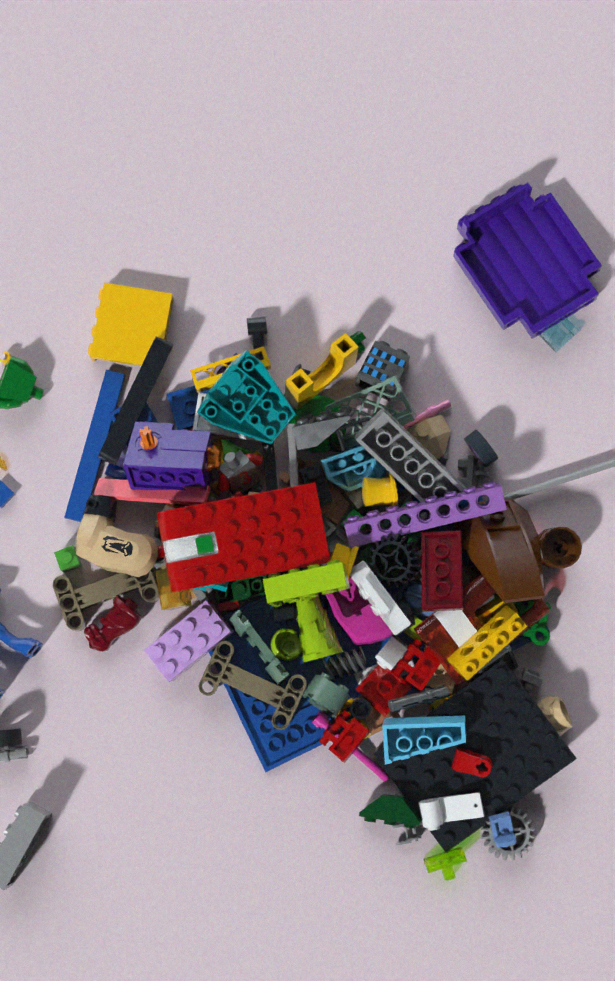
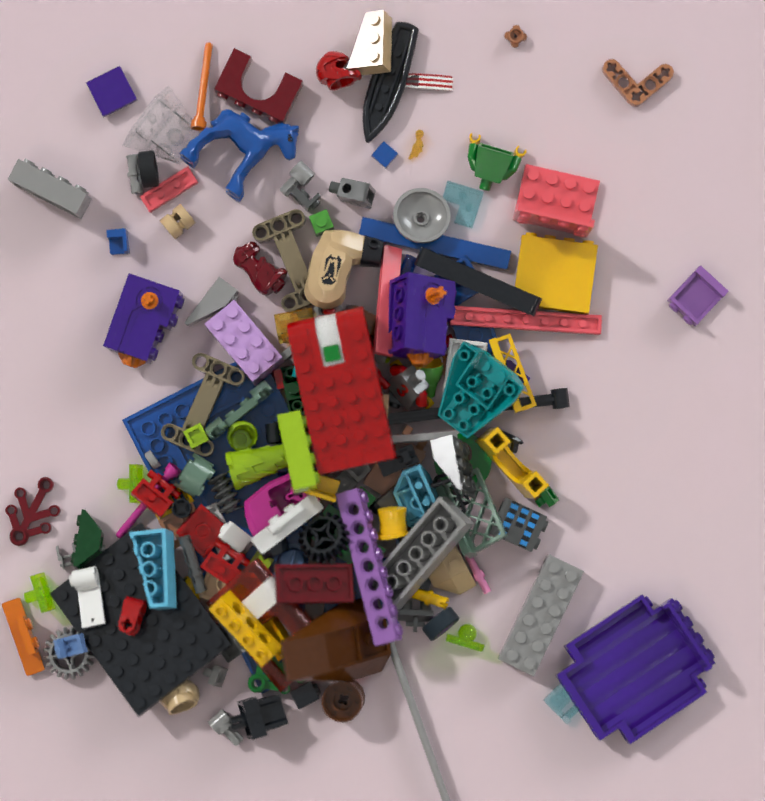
camera: 90 degrees right, 5 degrees up
(18, 580) = (299, 175): none -> light grey axle
(25, 718) = (169, 189): none -> coral tile
(38, 517) = (360, 194): none -> dark grey torso
(41, 578) = (302, 196): none -> dark grey bracket
(50, 412) = (467, 198): none -> clear light blue tile
(56, 451) = (421, 204): none -> light grey dish
(58, 323) = (556, 200): none -> coral bracket
(60, 716) = (172, 226): none -> tan wheel
(77, 773) = (118, 241): none -> blue panel
(144, 671) = (214, 301): none -> light grey slope
(159, 191) = (697, 296): none -> medium lavender panel
(159, 750) = (140, 320): none -> dark purple piece
(177, 358) = (522, 321): none -> coral tile
(285, 692) = (196, 435): none -> lime tile
(308, 740) = (152, 459): none -> light grey tile
(331, 761) = (130, 483): none -> clear neon green tile
(362, 872) = (30, 514): none -> dark red plant
(454, 458) = (430, 597): none -> yellow pin
(472, 350) = (540, 615): none -> light grey brick
(489, 882) = (23, 637): none -> orange bracket
(495, 425) = (465, 638): none -> clear neon green tile
(553, 587) = (305, 694): none -> black brick
(574, 633) = (259, 716): none -> black piece
(581, 673) = (221, 724): none -> light grey axle

